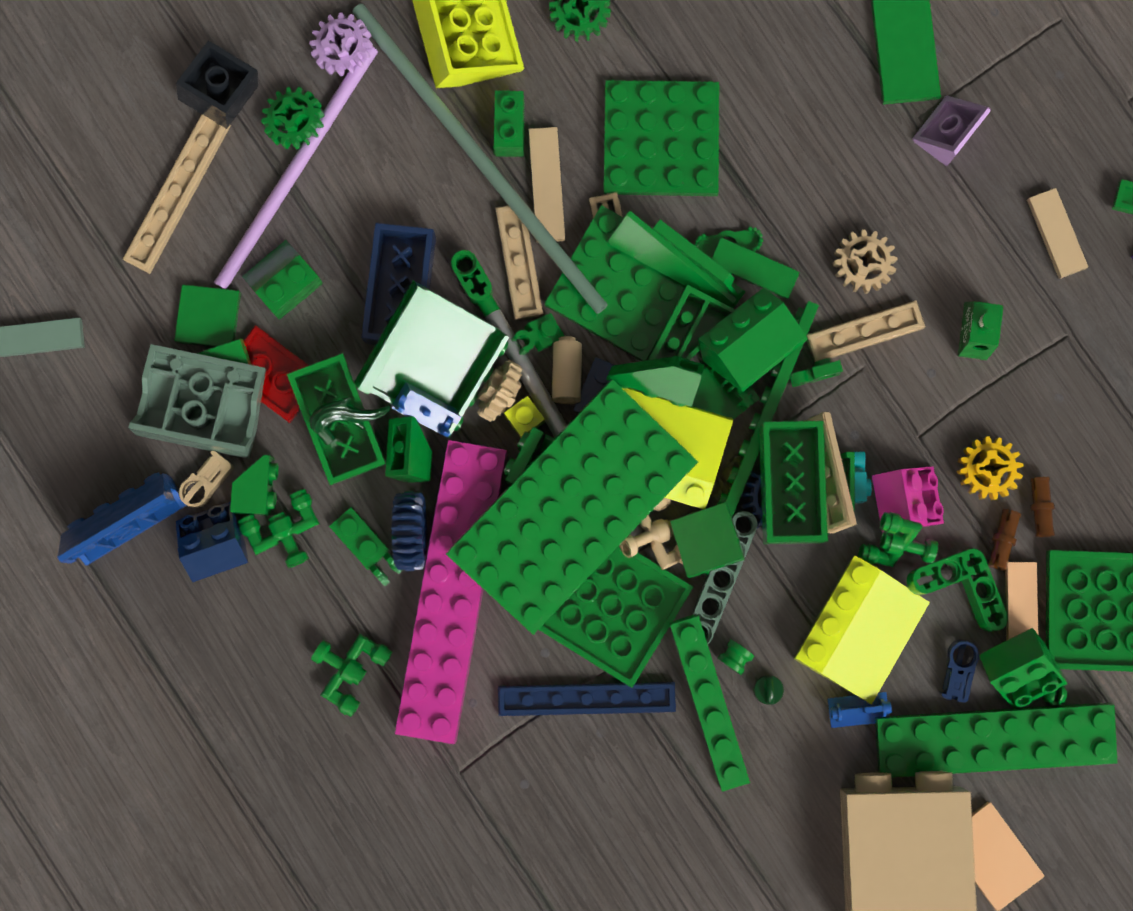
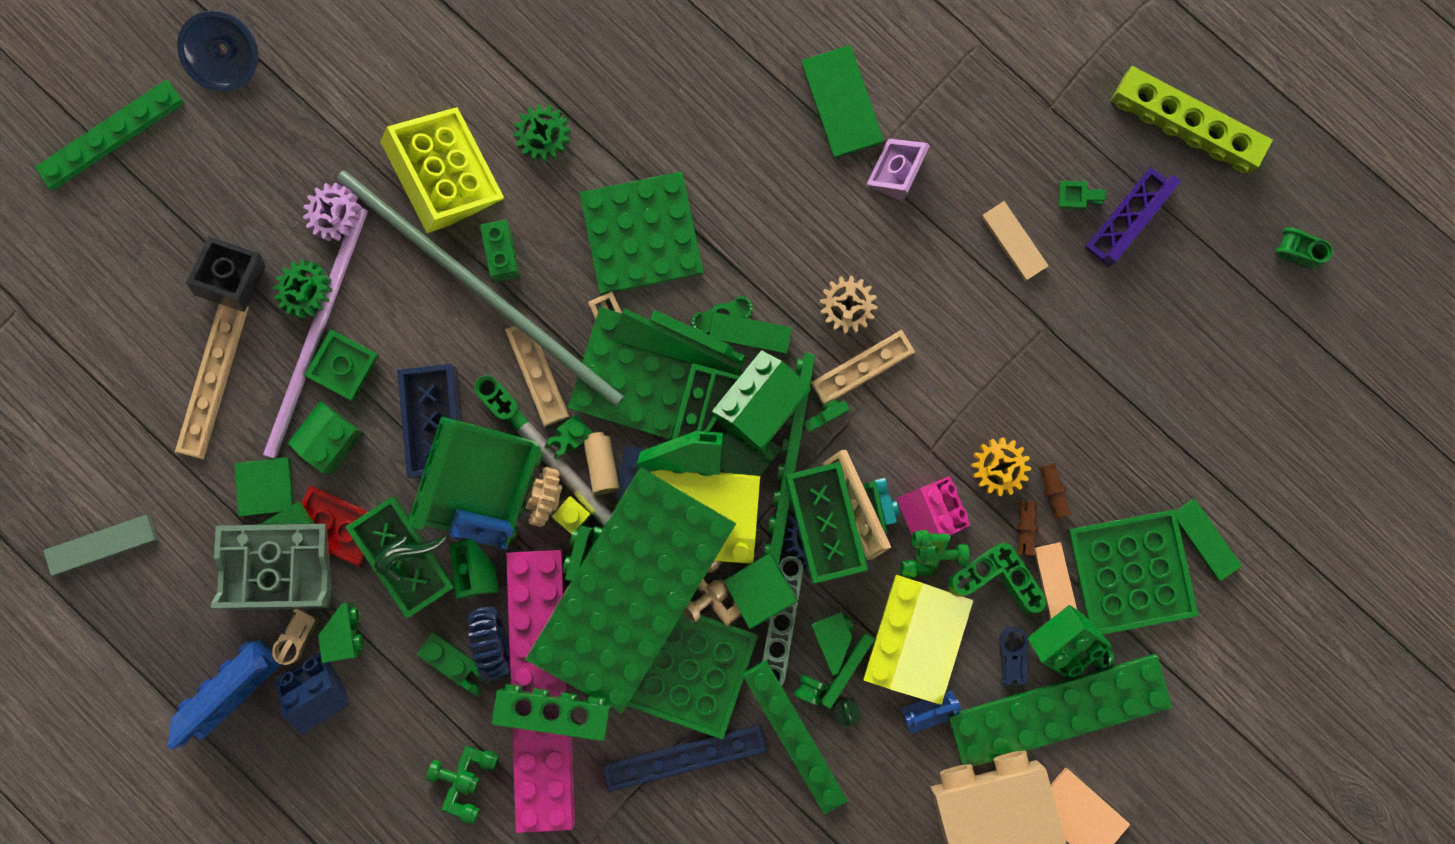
camera: 15 degrees left, 0 degrees up
(282, 529) = (374, 666): green piece -> none
(316, 207) = (342, 365): none -> green plate
(414, 606) = (507, 712): none -> green brick
(547, 180) = (546, 295): tan tile -> none
(771, 609) = (833, 638): none -> green slope
(778, 645) = (846, 670): none -> green tile
(980, 327) = (964, 343): green torso -> none

